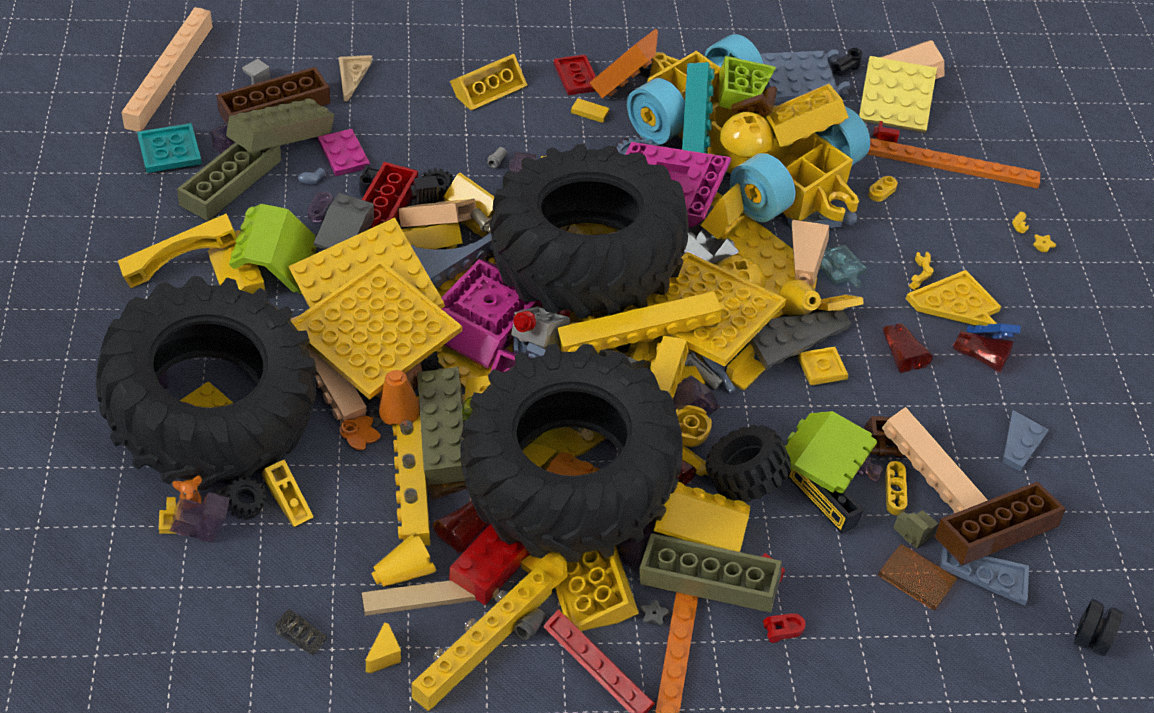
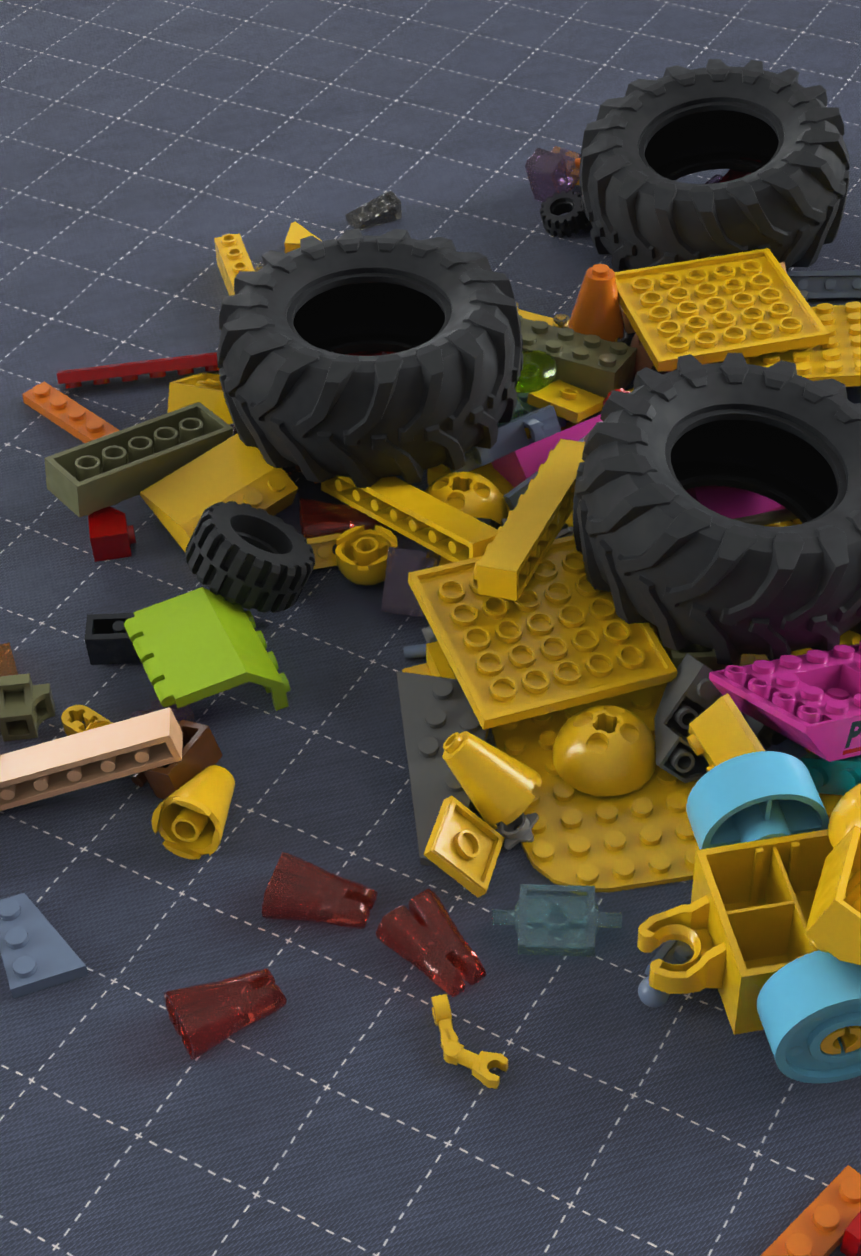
camera: 130 degrees right, 5 degrees down
(287, 493) = (556, 240): yellow slope -> none
(792, 626) = (34, 523): red plate -> none
(808, 249) = (603, 864): light nougat slope -> none
(822, 366) = (365, 771): yellow plate -> none
(882, 188) = (715, 1124): yellow plate -> none
(889, 299) = (431, 943): none -> clear red piece
(914, 400) = (196, 814): none -> yellow cone
(956, 299) = (355, 1049): yellow wing -> none
(997, 331) = (229, 1024): blue wing -> none

